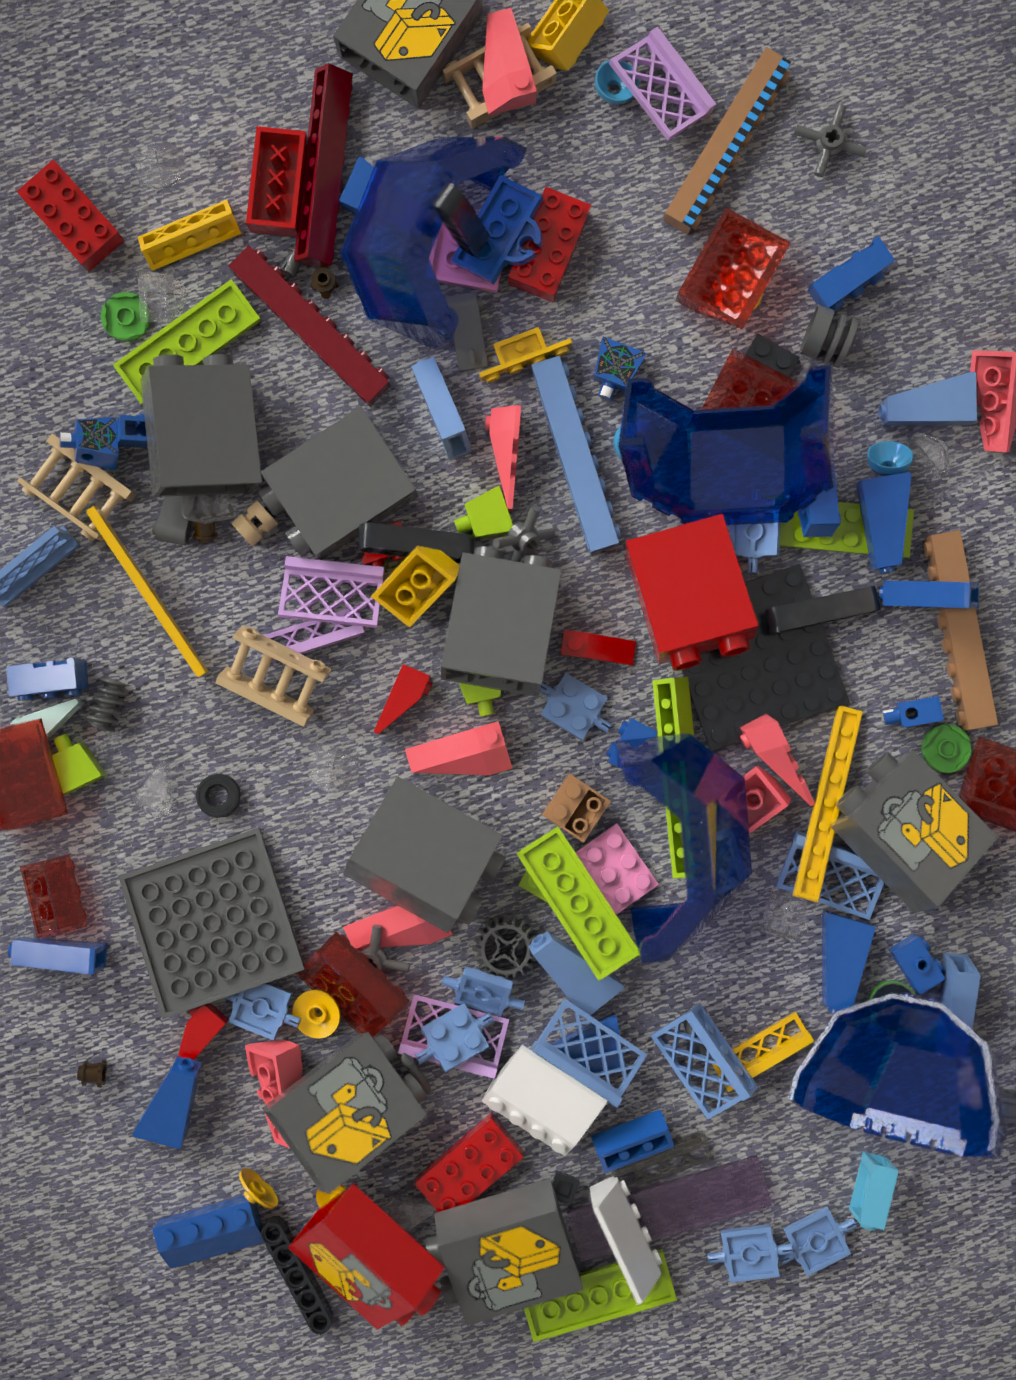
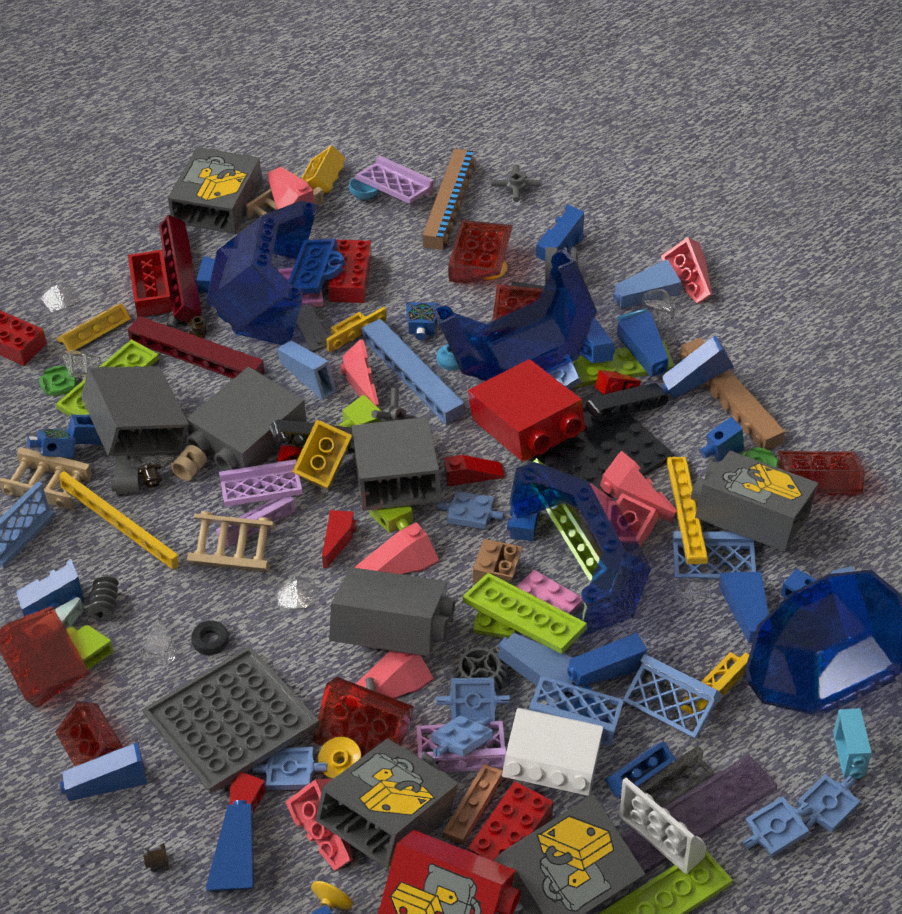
camera: 20 degrees left, 40 degrees down
(443, 1116) = (473, 804): none -> nougat plate
(461, 219) = (287, 243): black beam -> none
(647, 1002) = (608, 661): none -> blue slope
(822, 569) = (612, 381): none -> red slope

